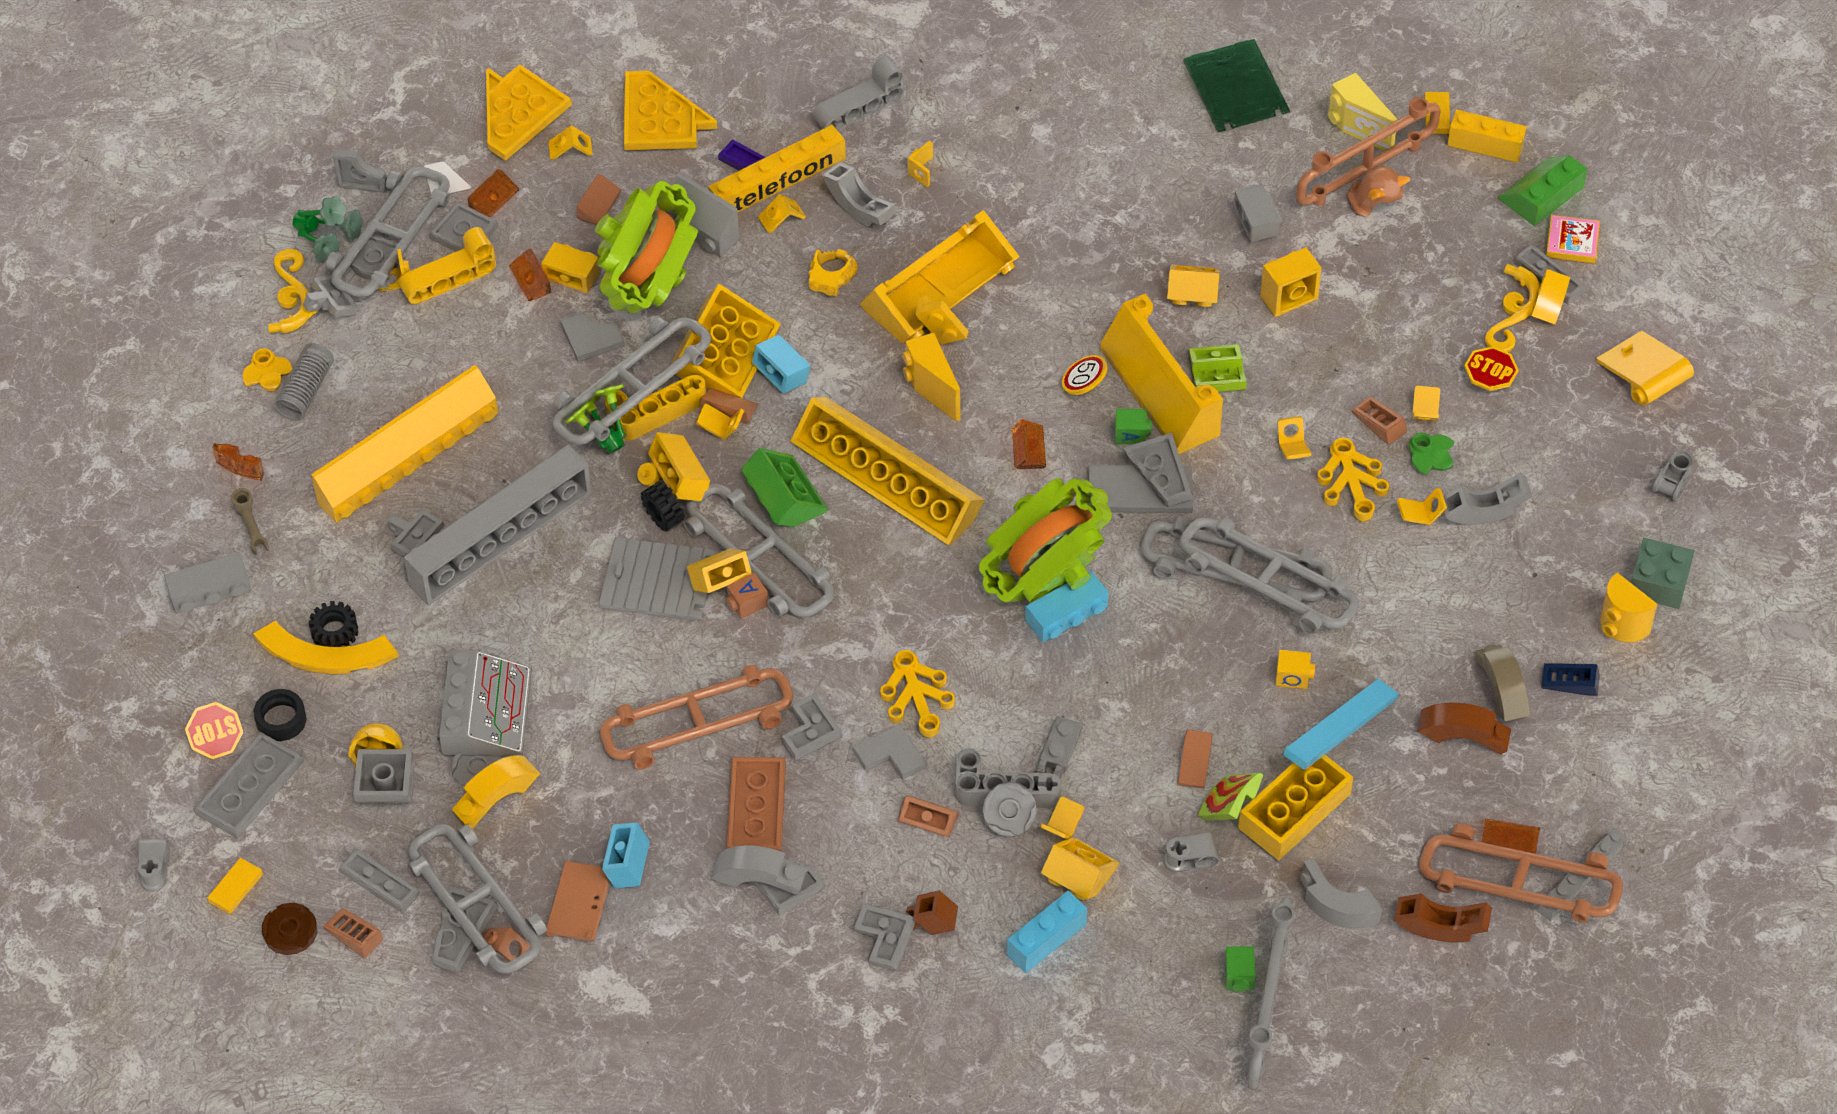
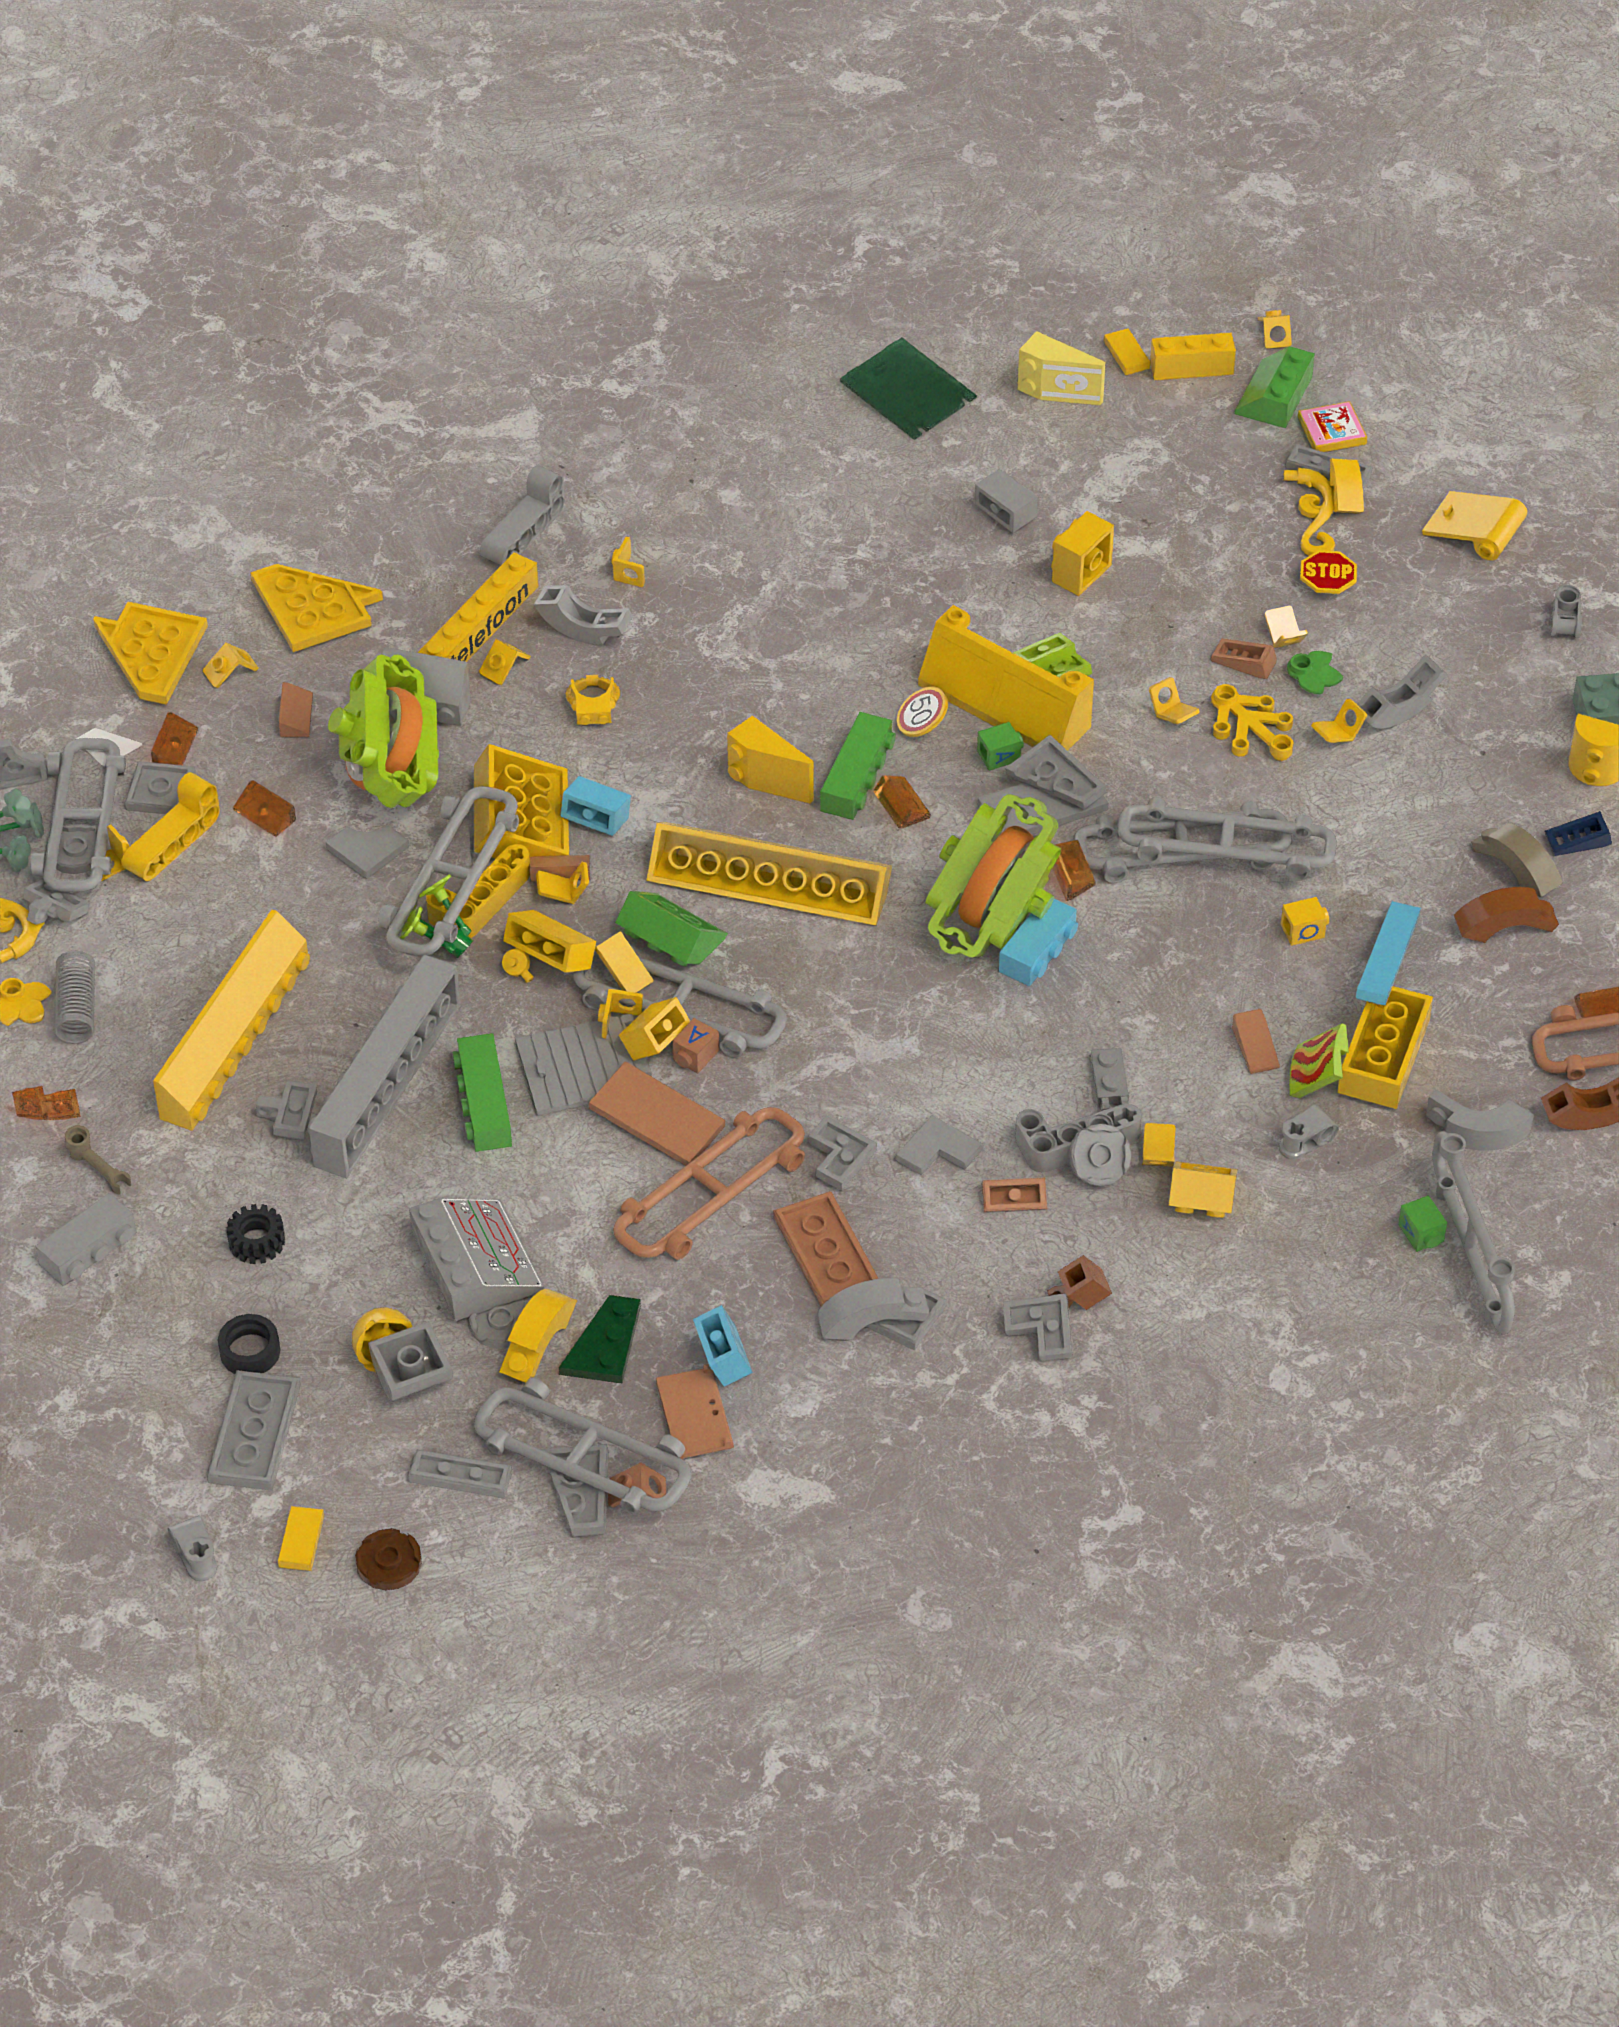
camera: 25 degrees left, 5 degrees down
(214, 730) = (184, 1386): piece -> none
(323, 658) = (259, 1272): yellow tile -> none
(362, 948) = (470, 1546): nougat slope -> none
(546, 816) = (605, 1343): none -> dark green wing
(564, 574) = (484, 1092): none -> bright green brick
(571, 267) = (307, 784): yellow brick -> none
(662, 505) = (554, 986): black tyre -> none
(687, 641) = (657, 1114): none -> nougat tile
(699, 536) = (613, 1005): none -> yellow bracket
(728, 507) = (624, 964): none -> yellow tile
(738, 155) = (424, 619): dark purple tile -> none
(916, 690) = (904, 1055): yellow plant -> none
(940, 321) = (743, 702): yellow bracket -> none
(944, 273) = (715, 667): yellow windscreen -> none
(1007, 402) = (857, 766): none -> bright green brick
(1046, 931) = (1208, 1260): medium azure brick -> none
(1129, 554) = (1073, 870): none -> clear orange slope
(1193, 284) = (982, 589): yellow slope -> none
(1325, 162) = (1059, 423): nougat bar -> none
(1378, 186) = (1115, 436): nougat hair -> none
(1578, 125) = (1272, 319): none -> yellow bracket

